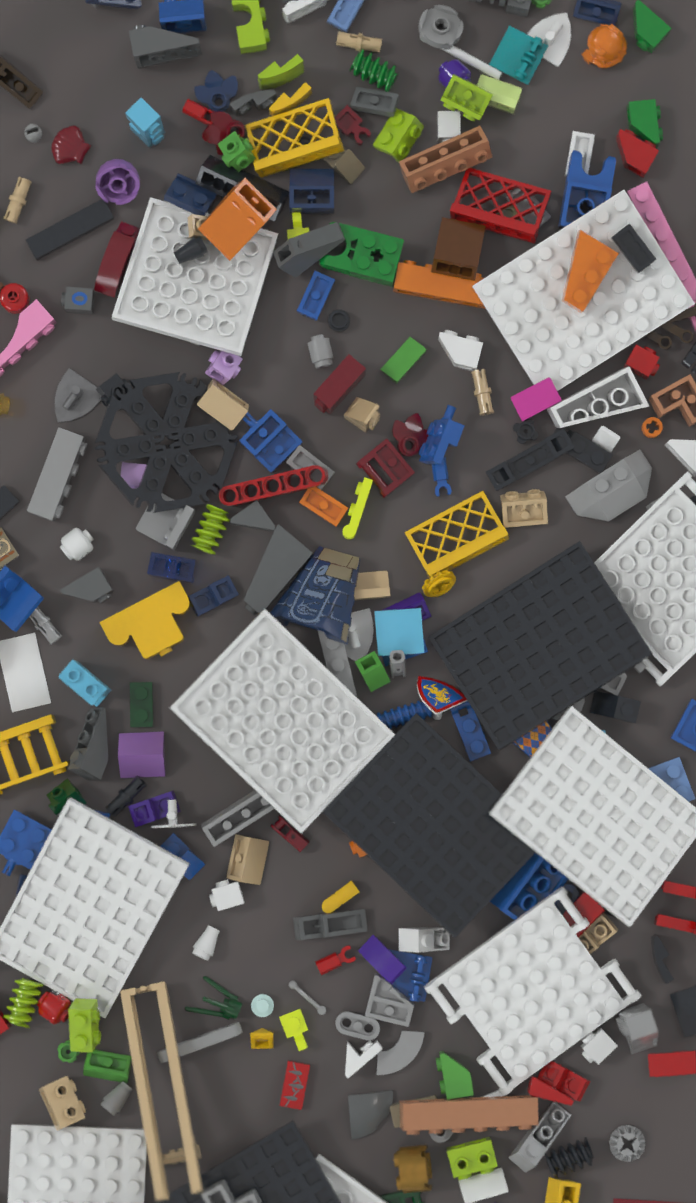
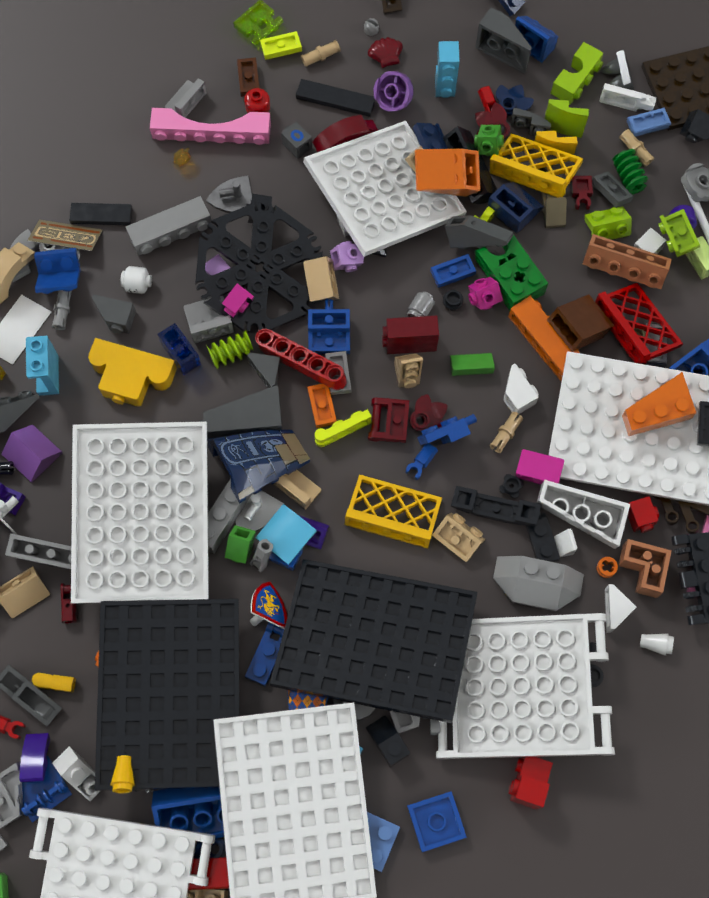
camera: 45 degrees right, 15 degrees down
(141, 704) = (63, 421): dark green plate -> none
(181, 488) = (237, 300): none -> dark pink brick
(191, 250) = (398, 166): black cone -> none
(213, 596) = (187, 395): dark blue slope -> none
(360, 293) = (484, 293): none -> dark pink brick
(404, 714) = (223, 591): blue piece -> none
(439, 583) = (352, 535): yellow gear -> none
(466, 910) = (123, 775): none -> yellow cone

